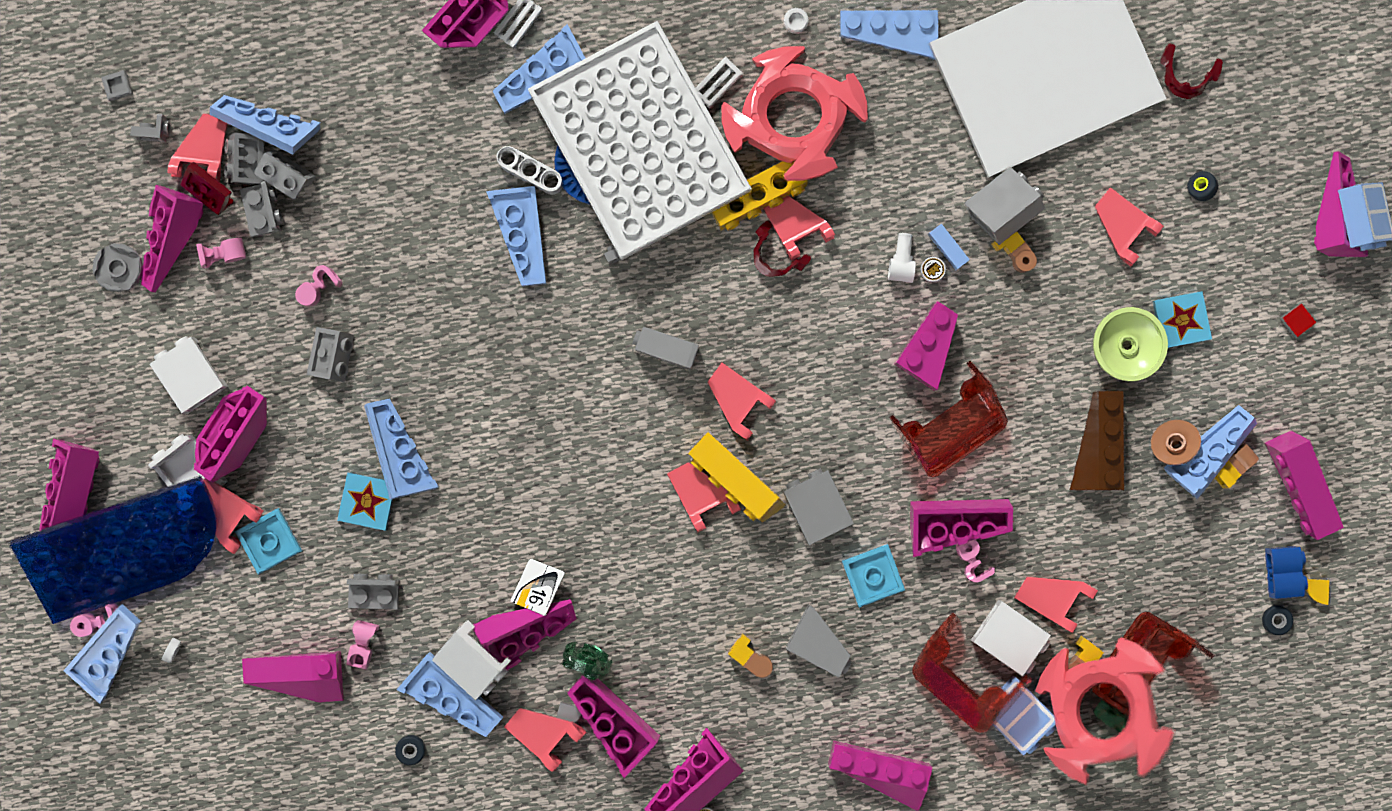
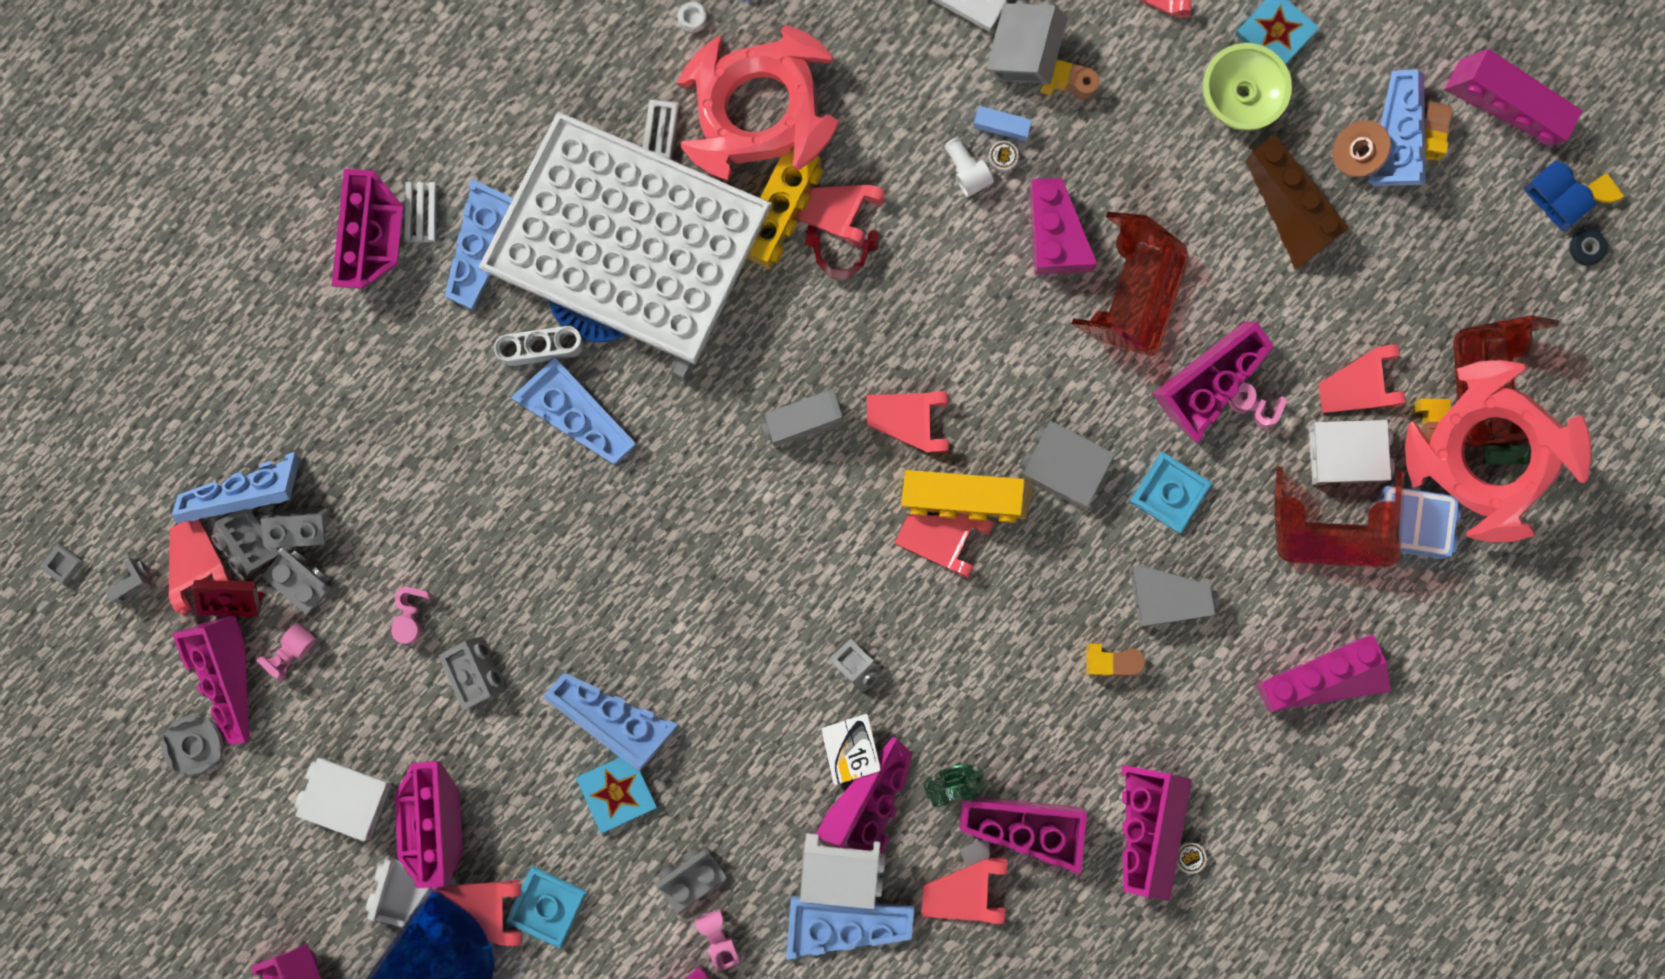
camera: 40 degrees left, 5 degrees down
(581, 535) = (856, 665): none -> light grey bracket

